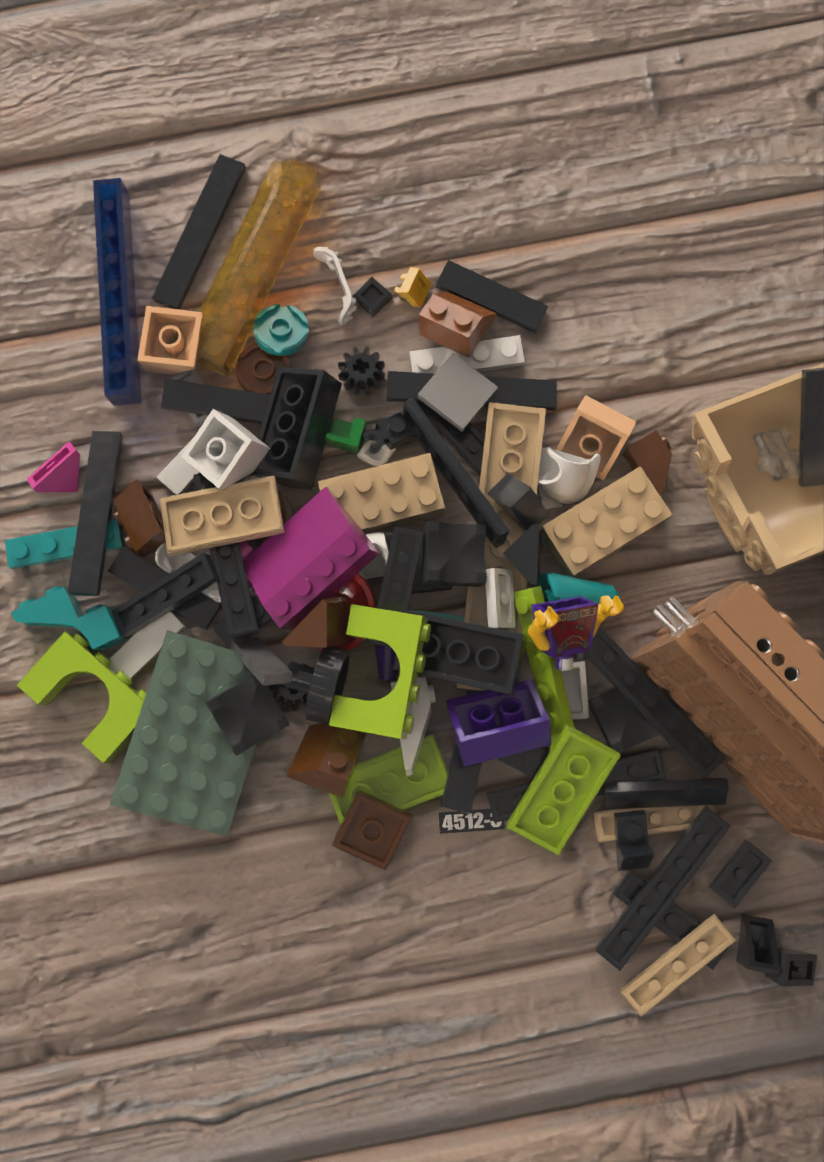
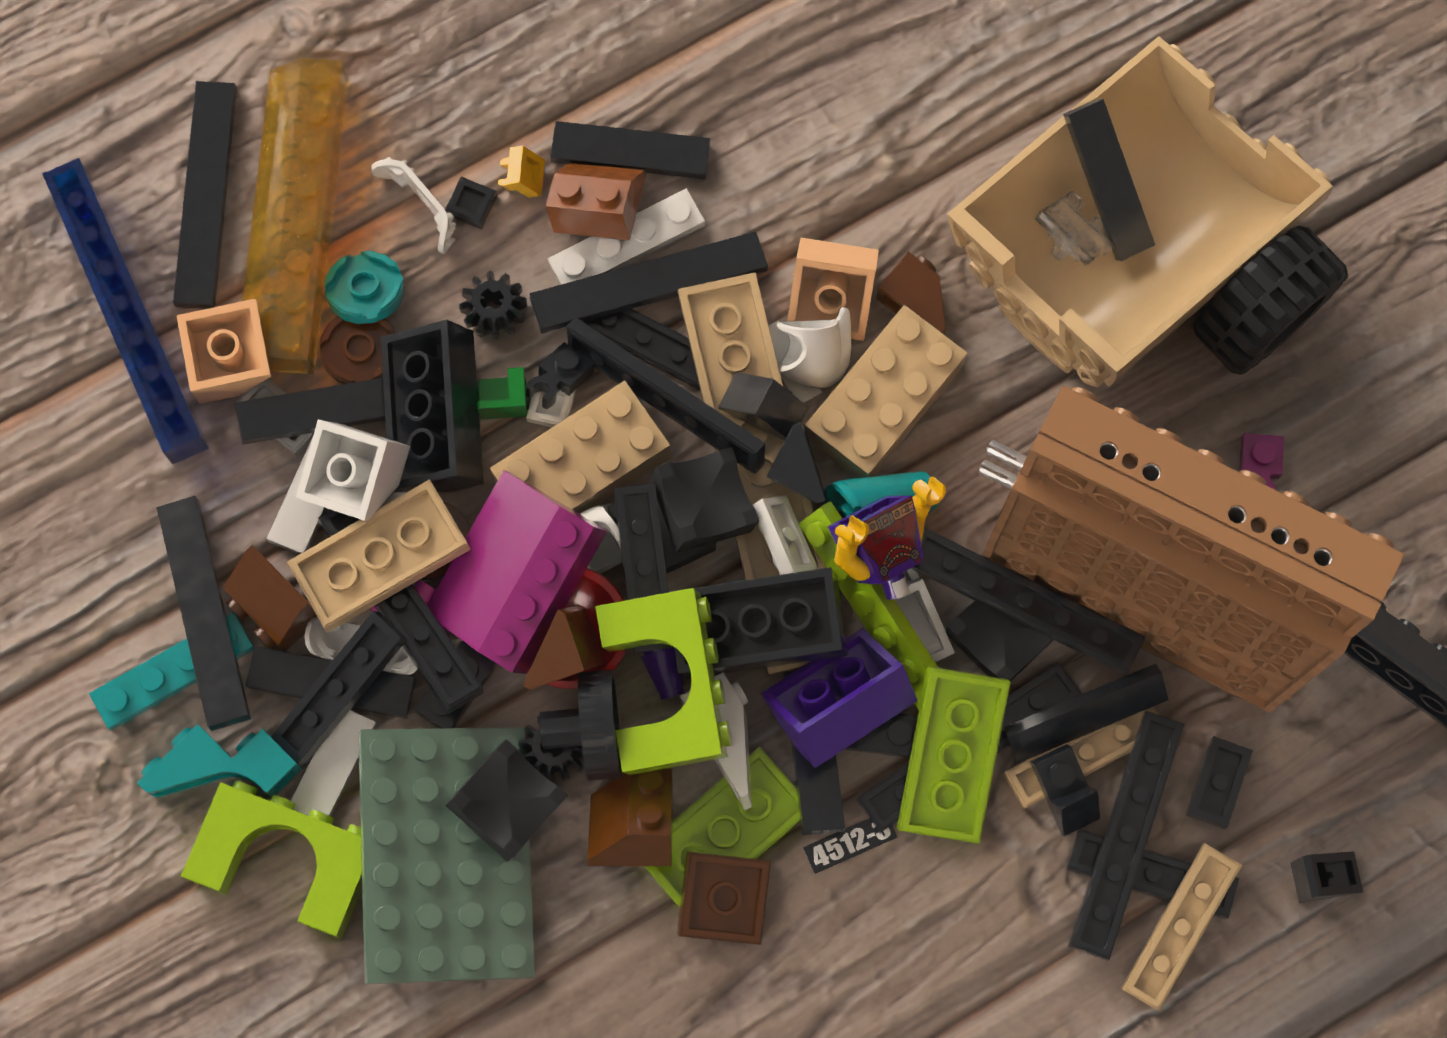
camera: 25 degrees left, 5 degrees down
(58, 473) = (129, 578): dark pink slope -> none
(261, 661) = (500, 725): flat silver tile -> none
(457, 392) = (631, 290): light grey tile -> none
(758, 945) = (1273, 863): black slope -> none

